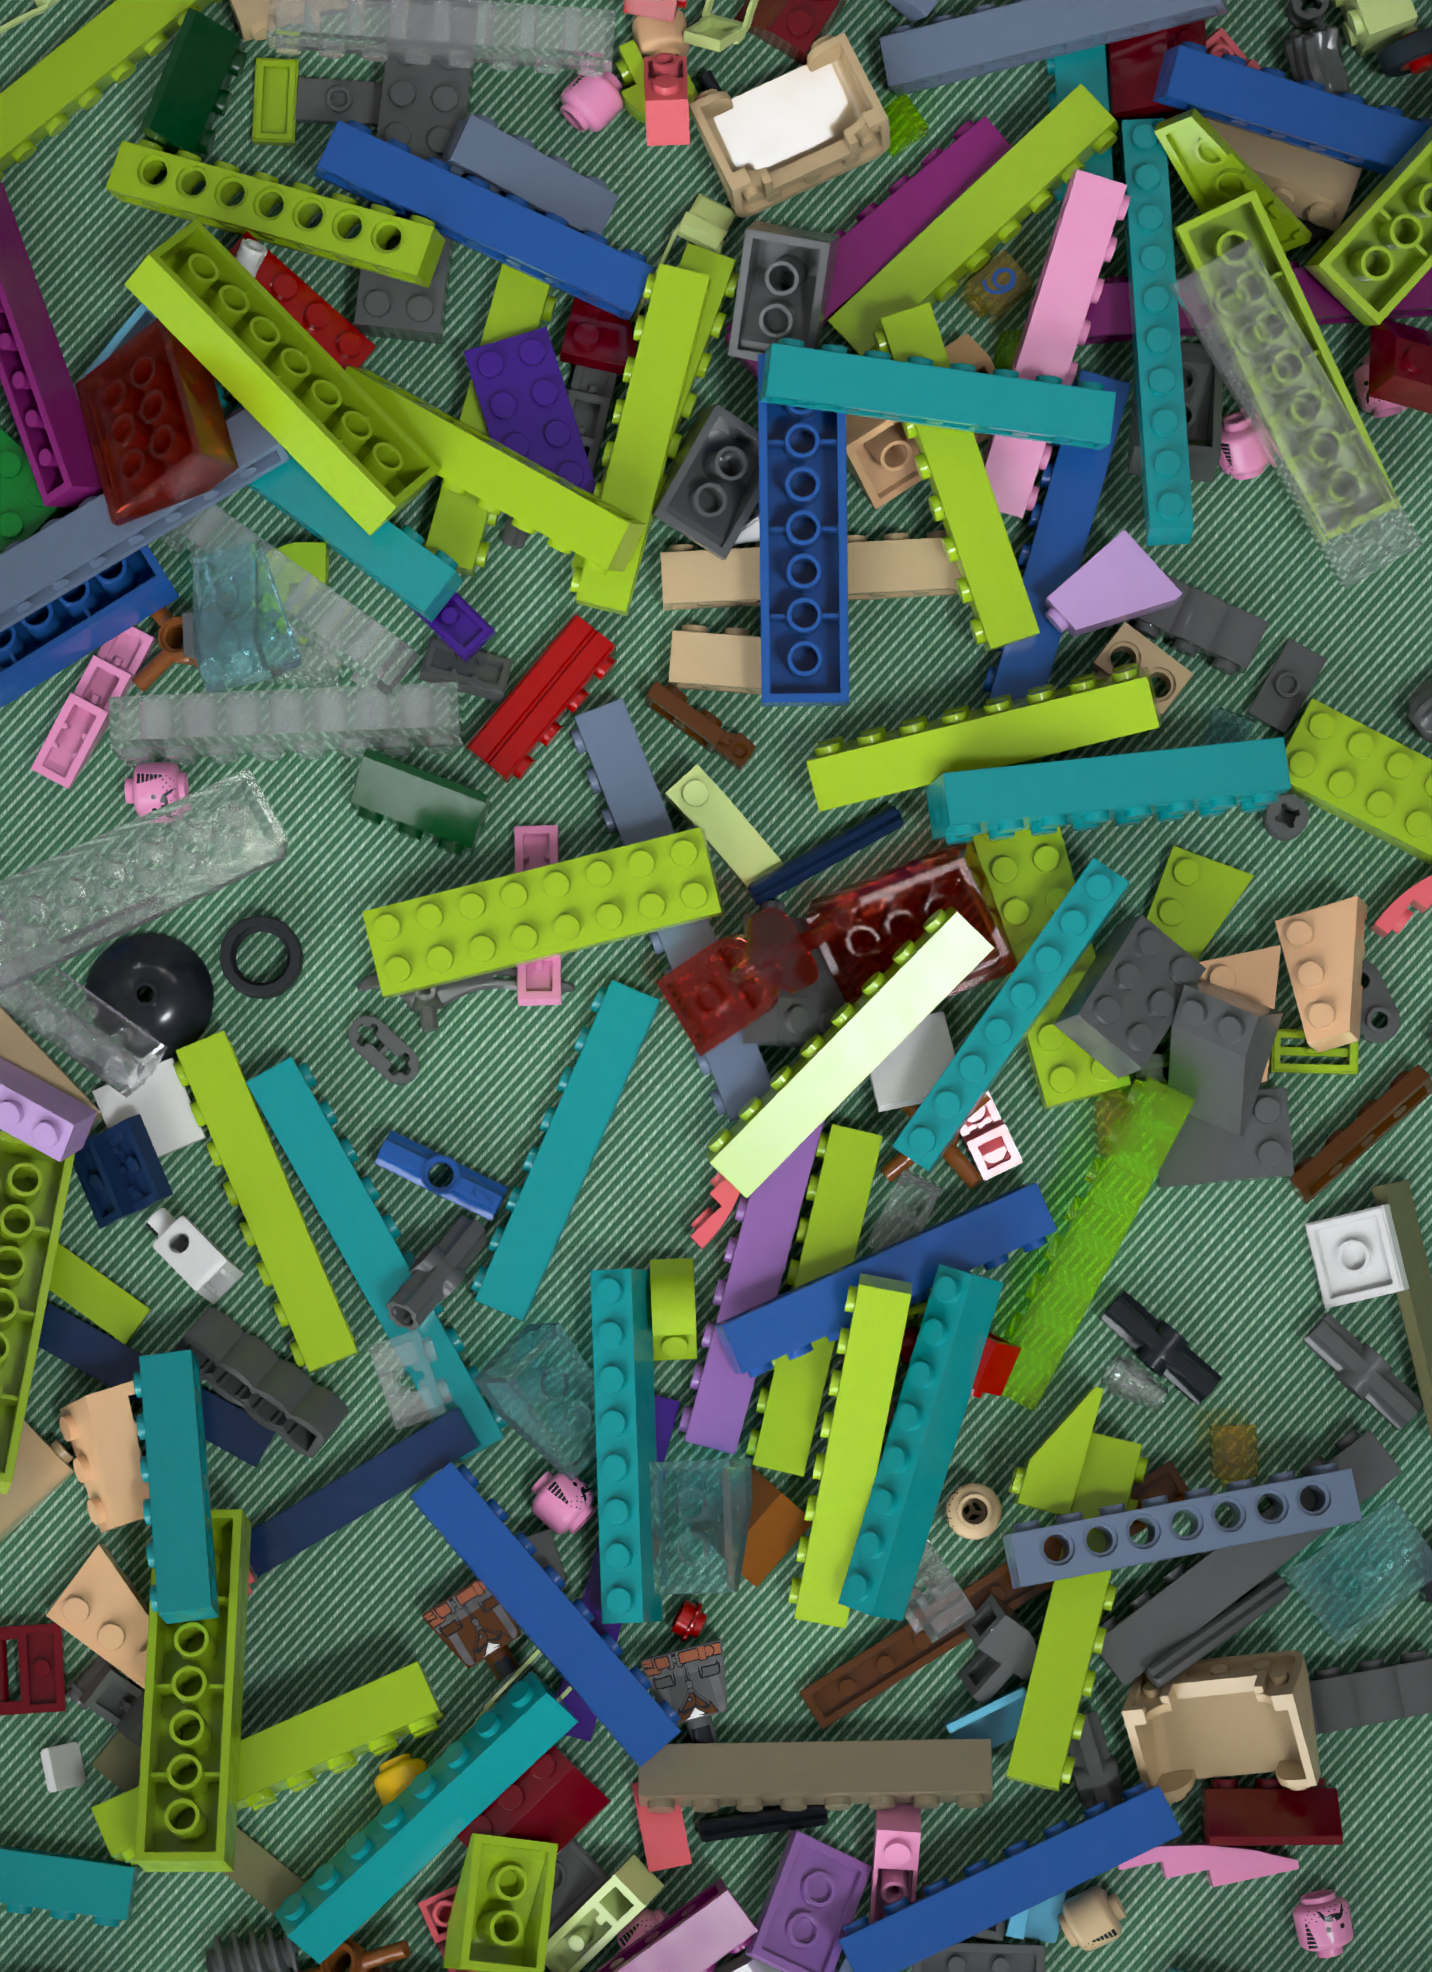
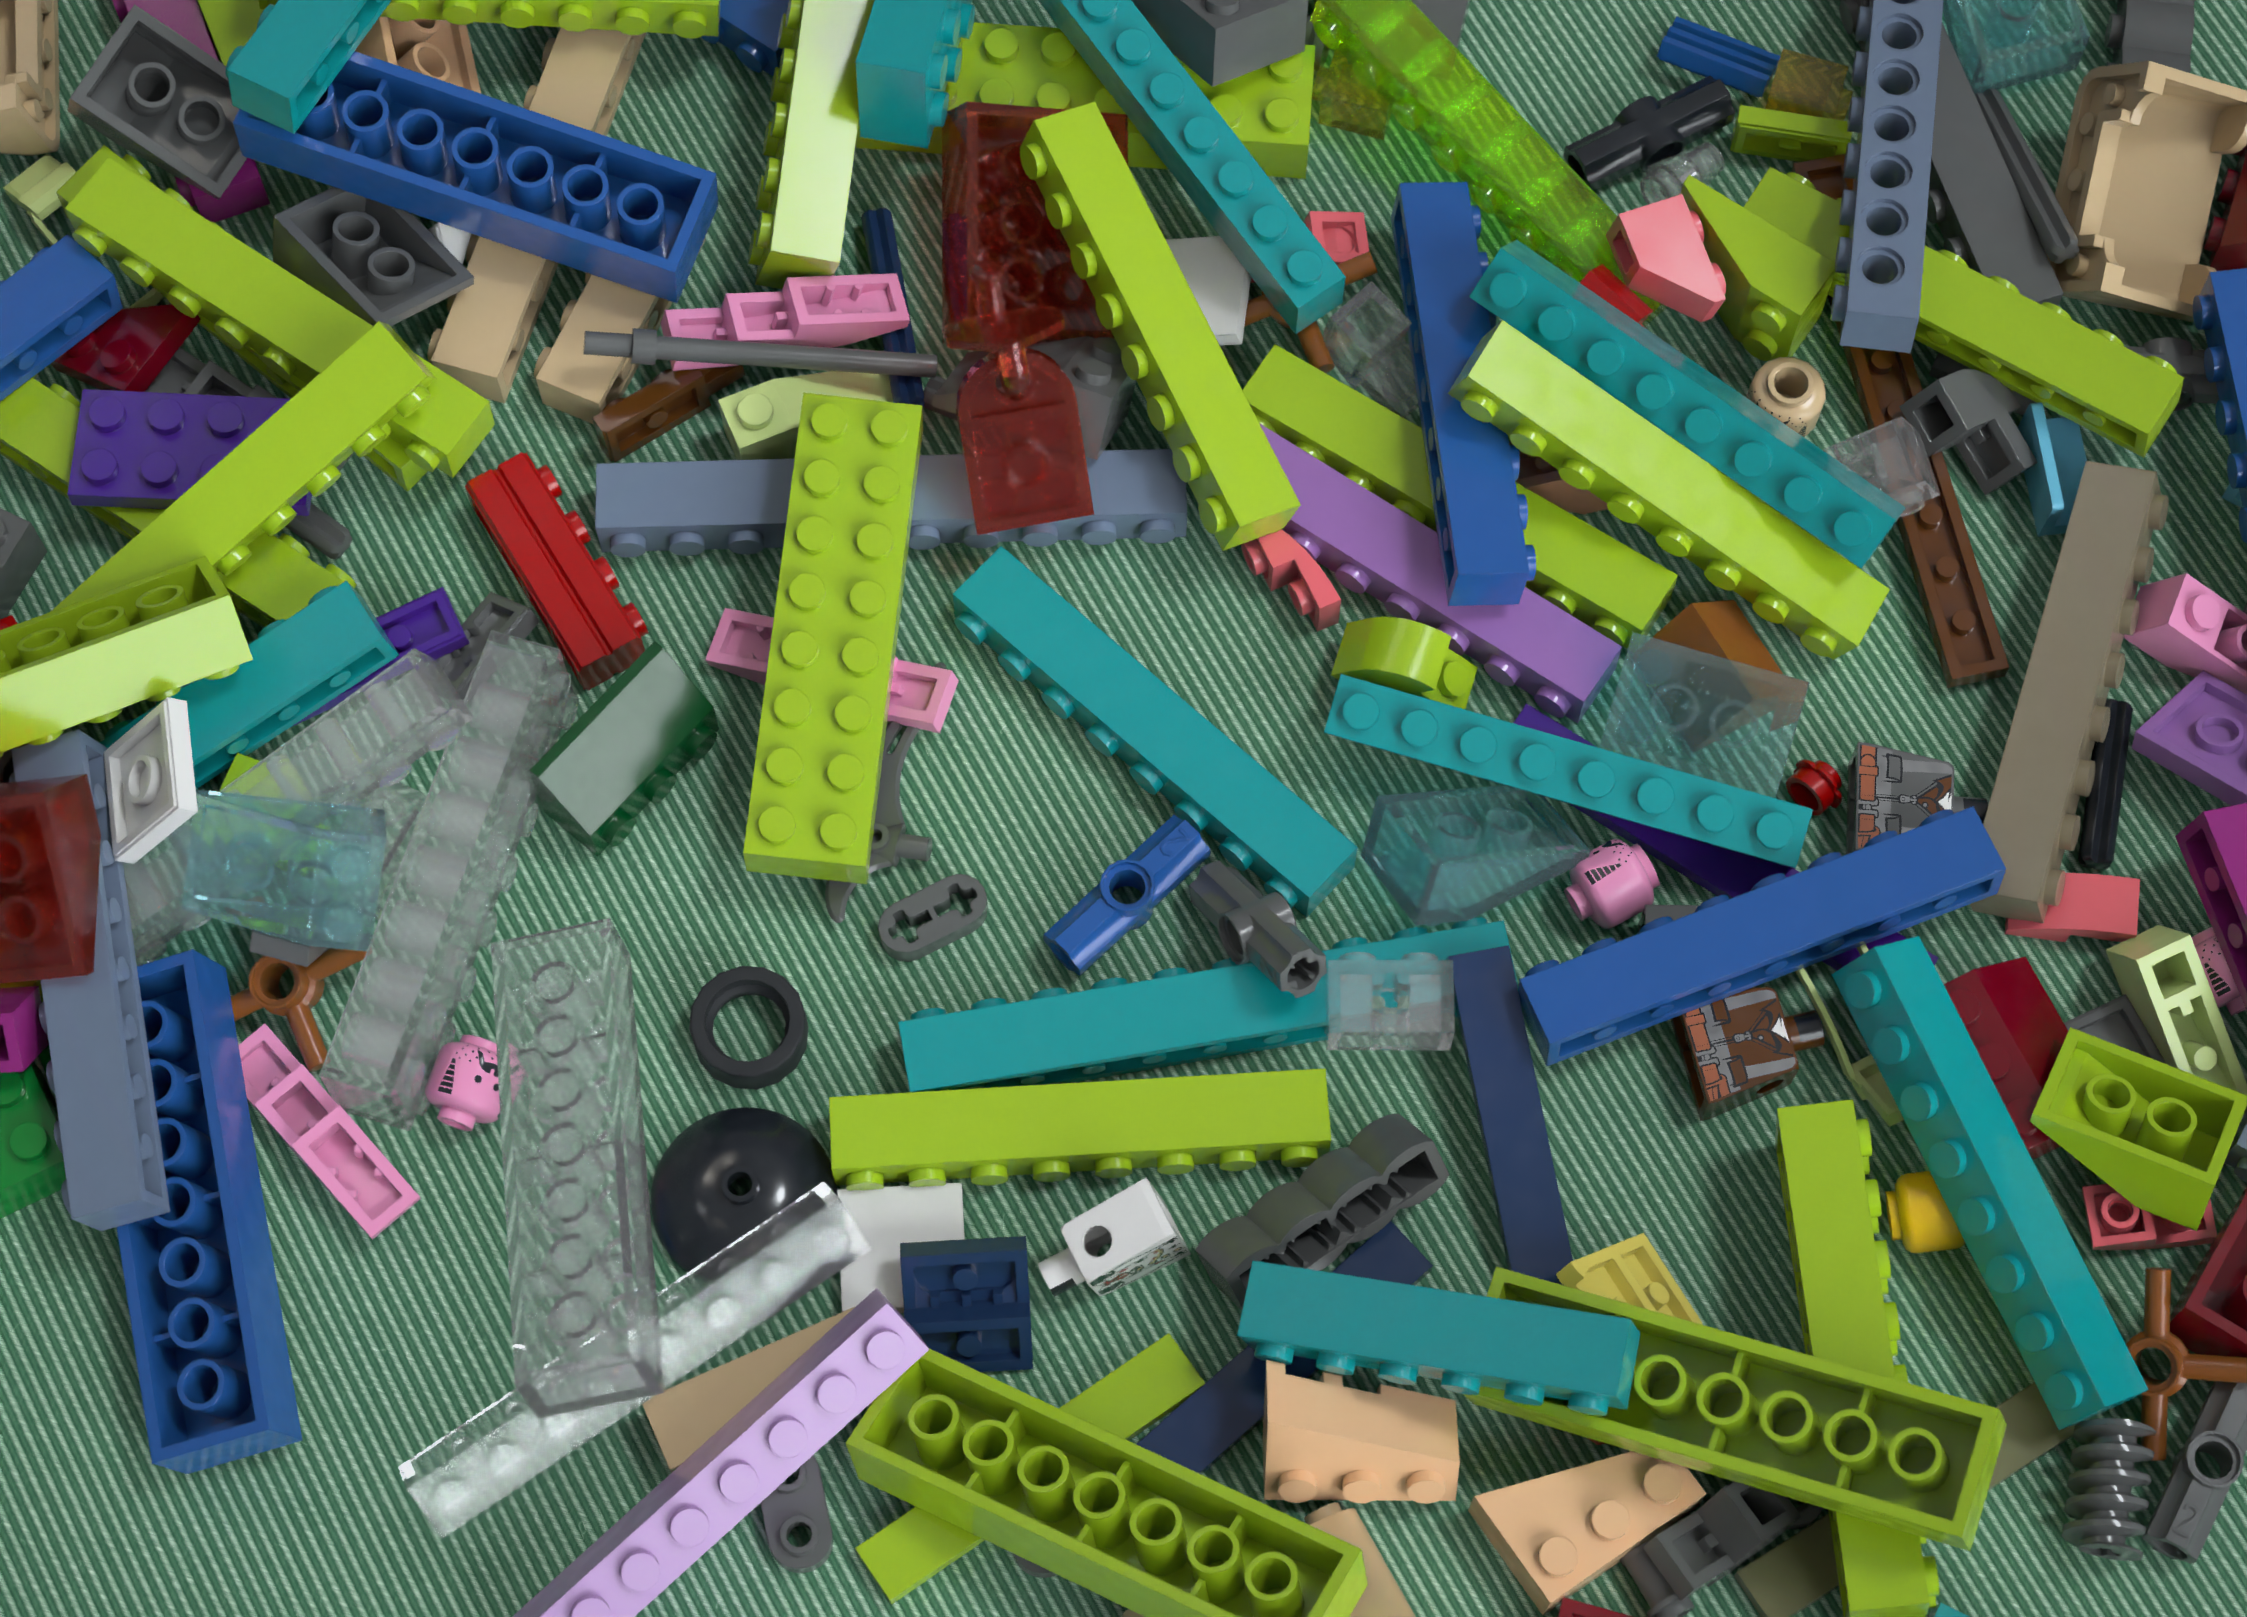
camera: 70 degrees left, 15 degrees down
(264, 504) = (150, 781): none -> white tile
(277, 1609) = (1631, 1275): none -> light yellow wing
(708, 701) = (645, 347): none -> dark grey bar
(778, 786) = (805, 313): none -> bright pink slope
(1039, 1391) = (1665, 257): none -> coral slope
(1193, 1449) = (1788, 135): none -> lime tile
(1250, 1380) = (1718, 55): none -> blue tile

